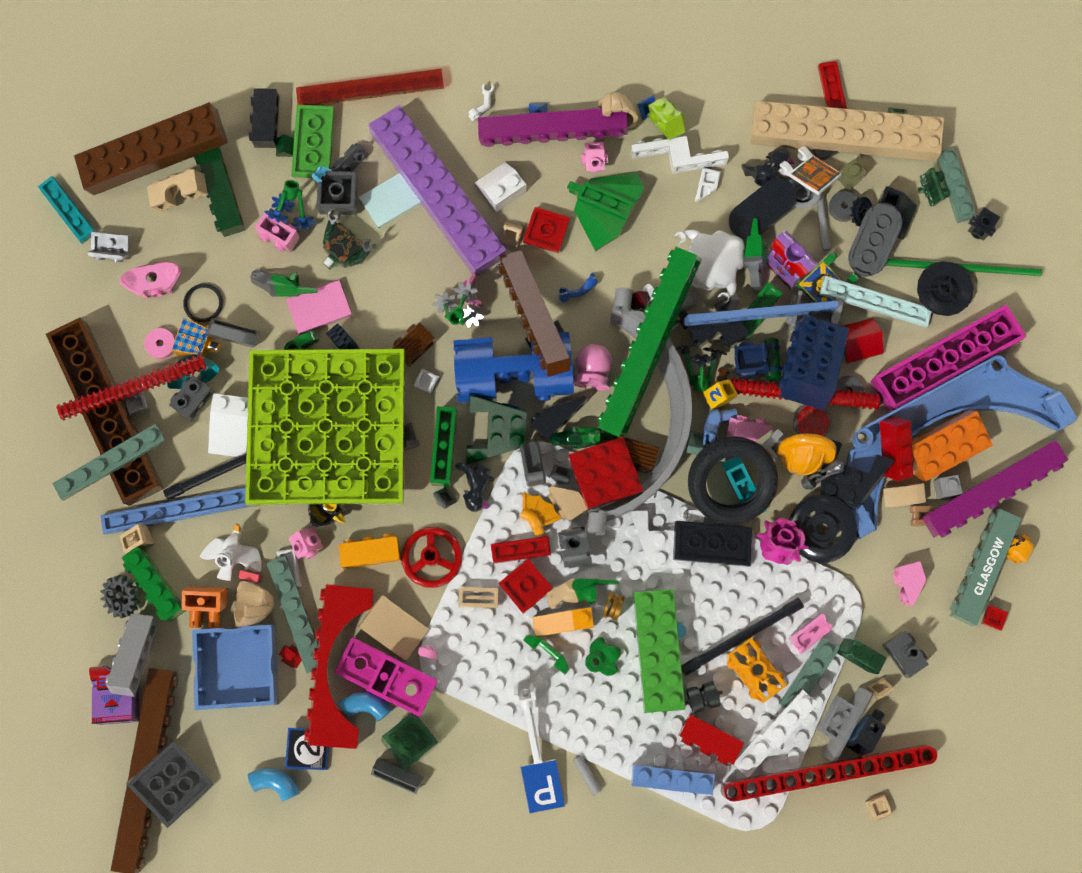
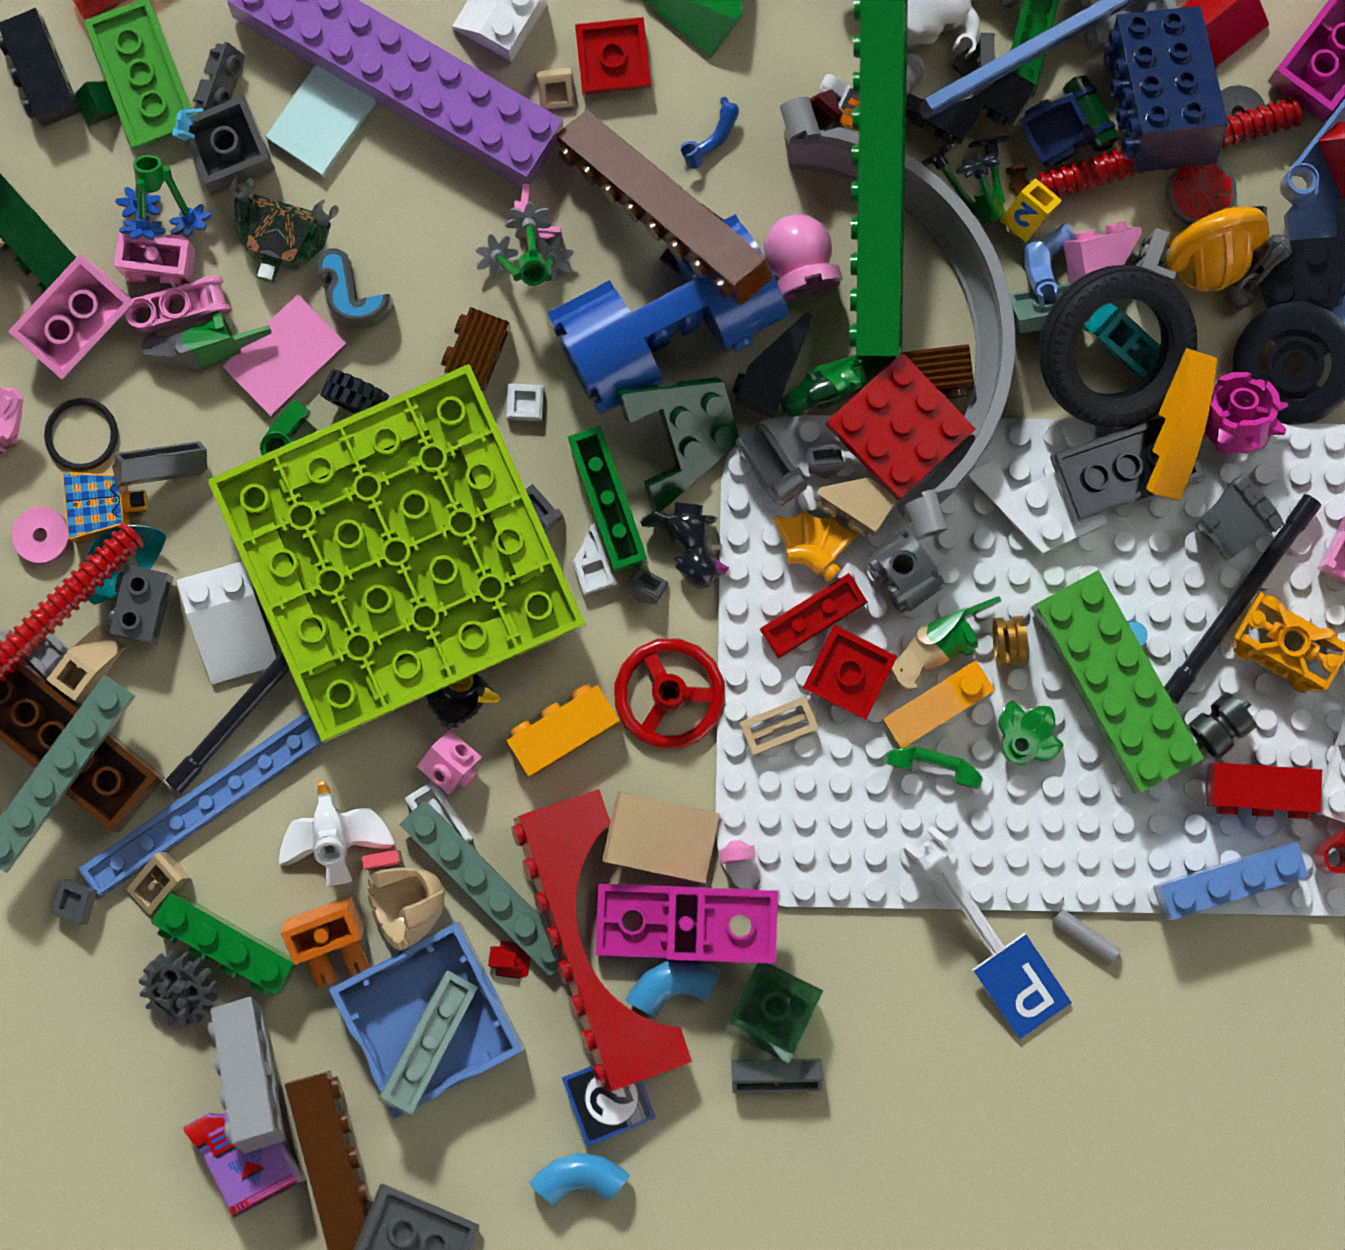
camera: 25 degrees left, 5 degrees up
(90, 530) = (74, 901): none -> dark grey plate
(151, 414) = (86, 664): none -> tan slope
(223, 242) = (71, 316): none -> bright pink slope
(229, 679) = (428, 1043): none -> sand green plate
(290, 261) = (197, 305): none -> bright pink piece
(359, 290) = (342, 296): none -> dark grey animal
(421, 476) = (593, 564): none -> white tile
(750, 533) = (1186, 417): none -> light orange slope
(757, 594) = (1239, 518): none -> dark grey piece

